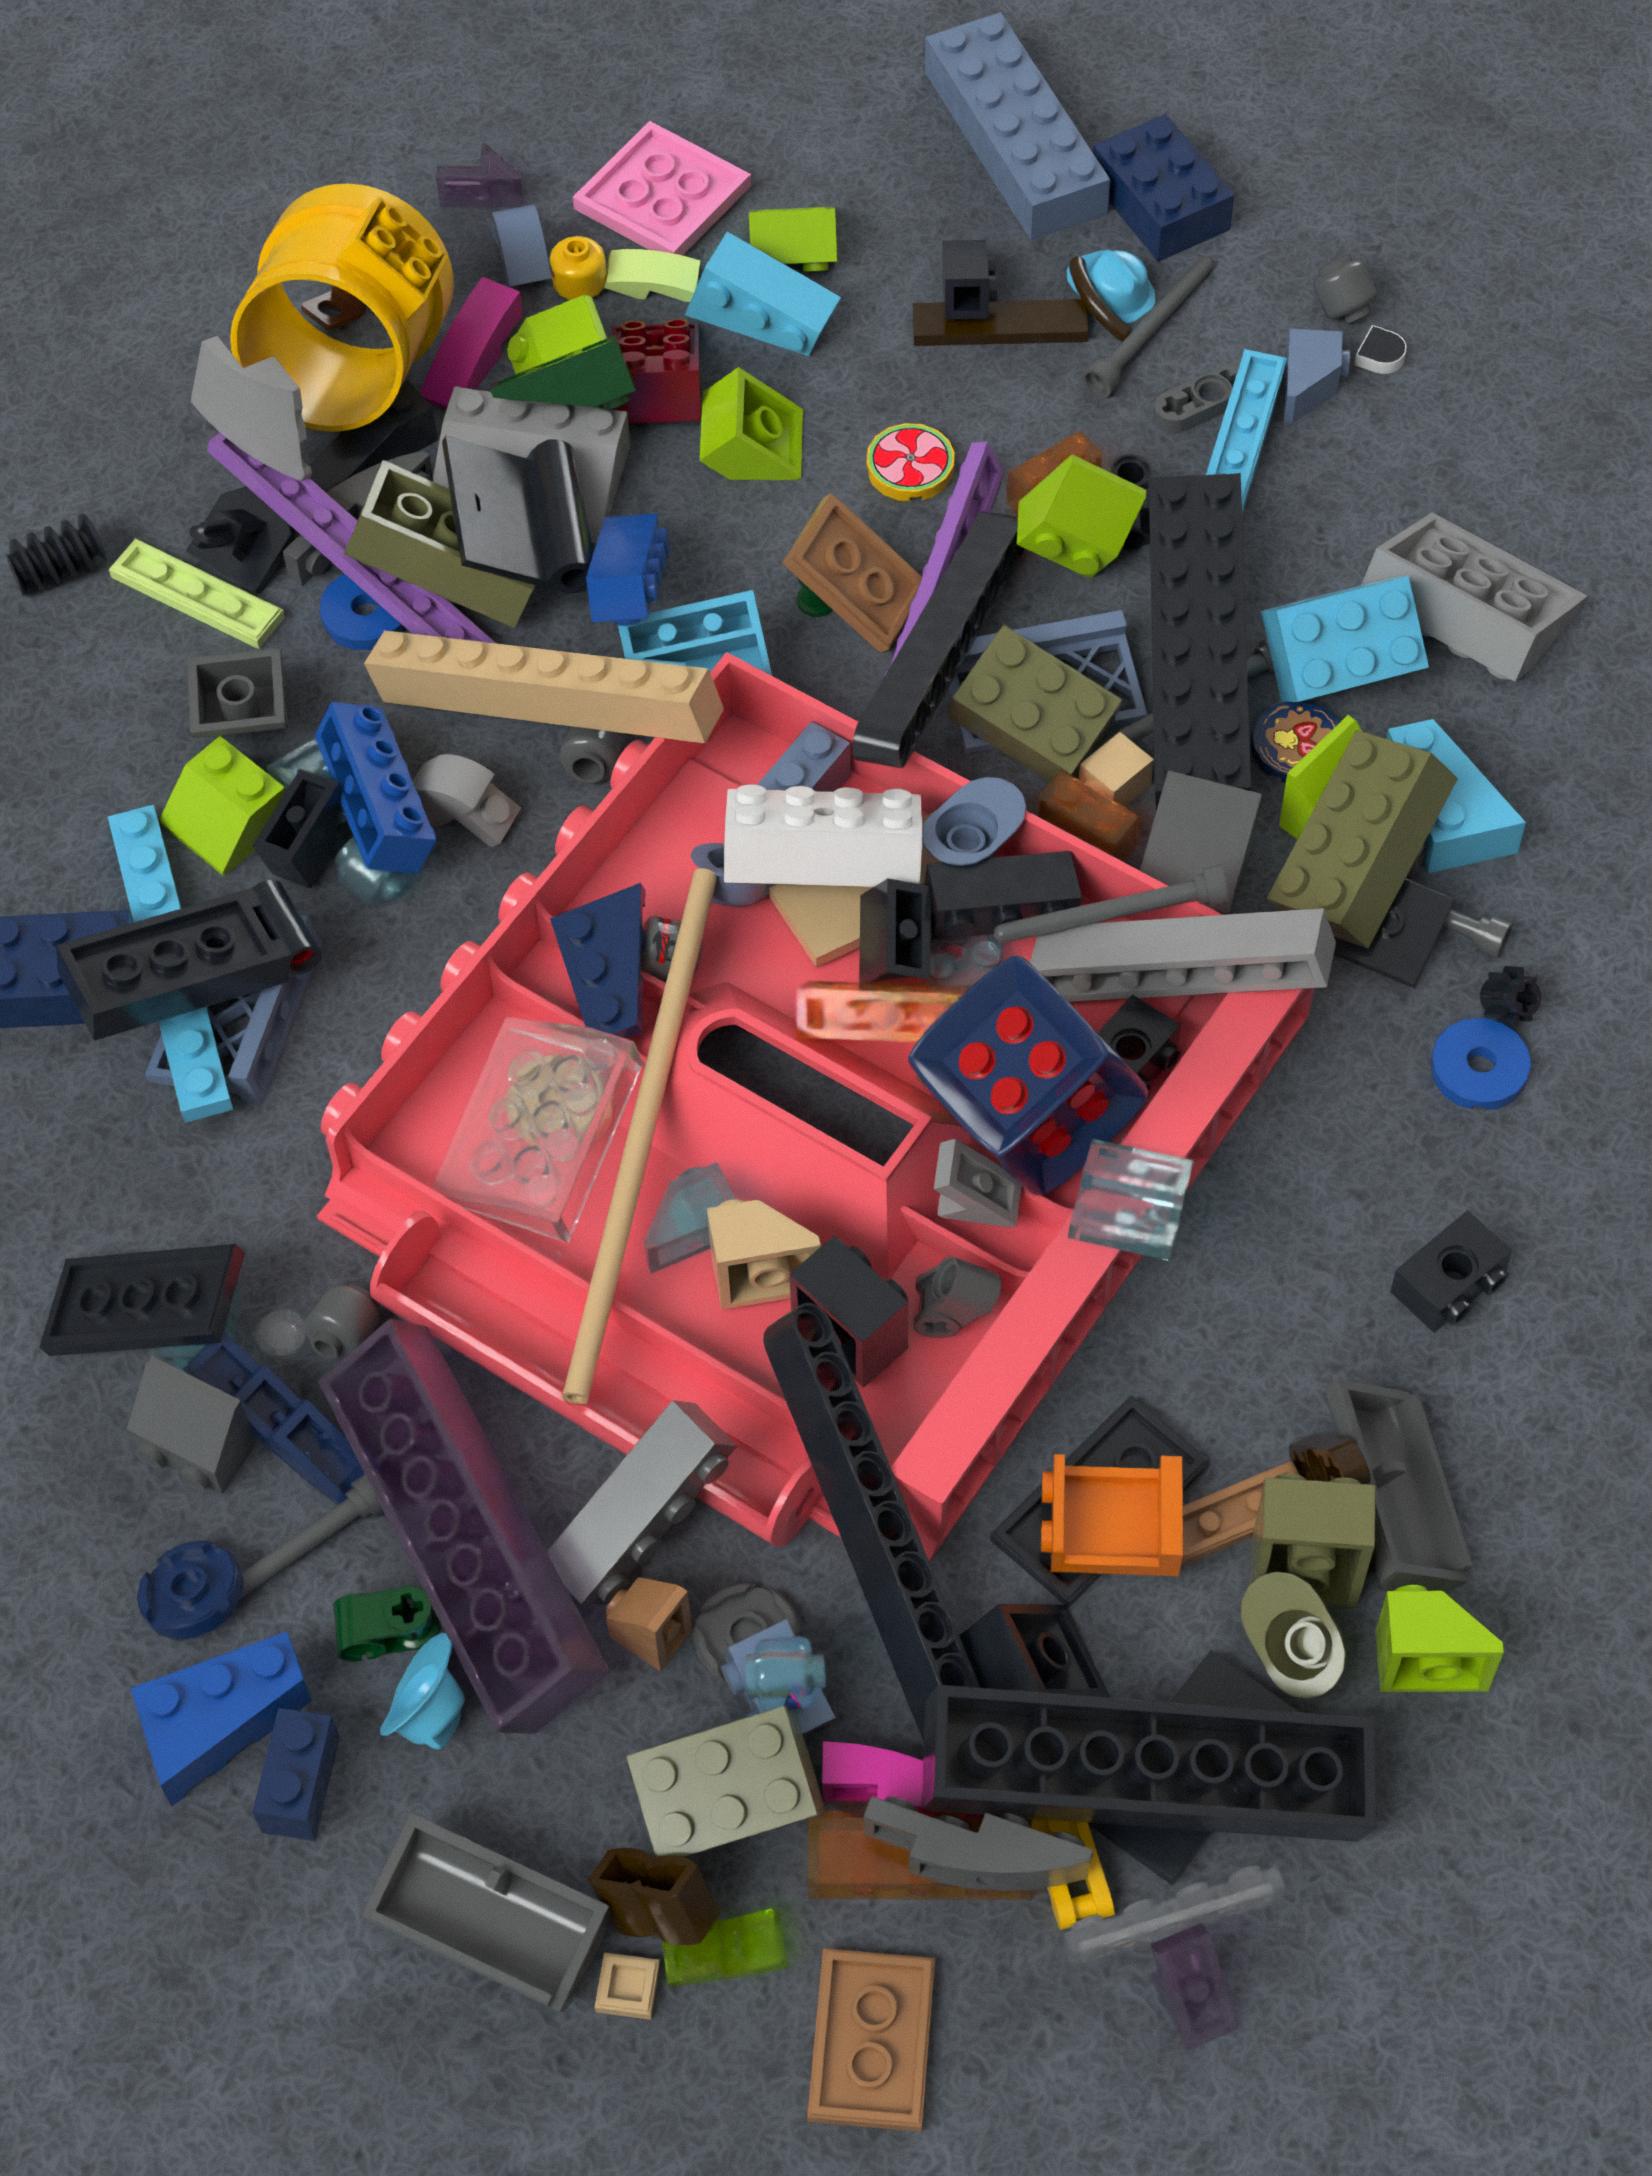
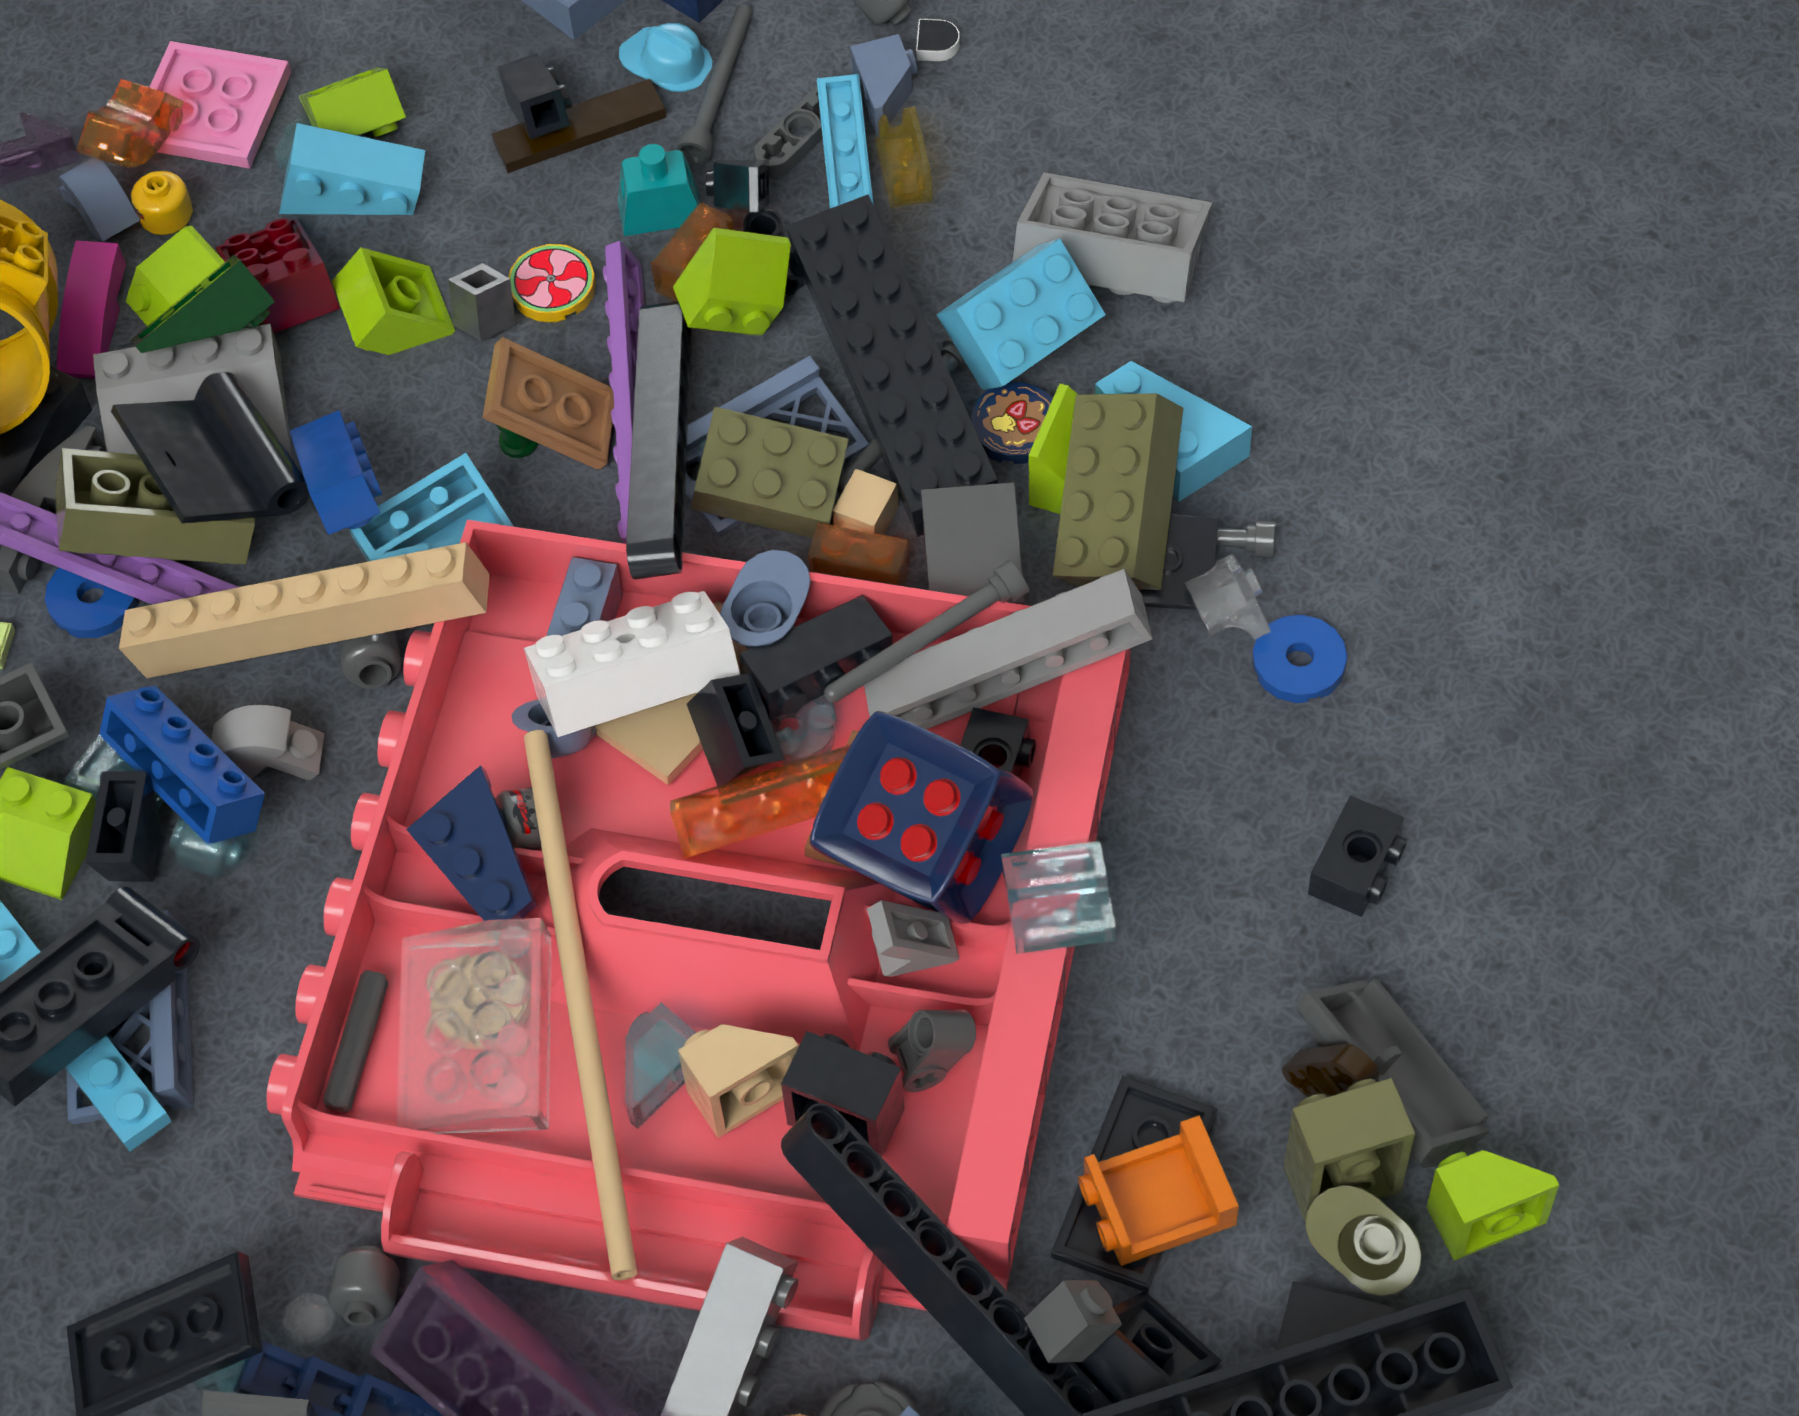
camera: 20 degrees left, 0 degrees up
(427, 1098) = (355, 1041): none -> dark grey axle
(576, 186) = (130, 125): none -> clear orange brick
(640, 271) = (223, 185): yellowish green slope -> none
(833, 457) = (481, 302): none -> flat silver brick
(973, 1600) = (1073, 1321): none -> dark grey brick
(1044, 405) = (655, 191): none -> teal torso
(1095, 302) = (659, 77): dark brown piece -> none
(1126, 426) = (739, 184): none -> black slope
(1224, 1516) = (1260, 1144): medium nougat tile -> none
(1297, 456) = (904, 160): none -> clear yellow hinge
(1431, 980) = (1228, 598): none -> clear brick
(1510, 996) = (1302, 588): black gear -> none

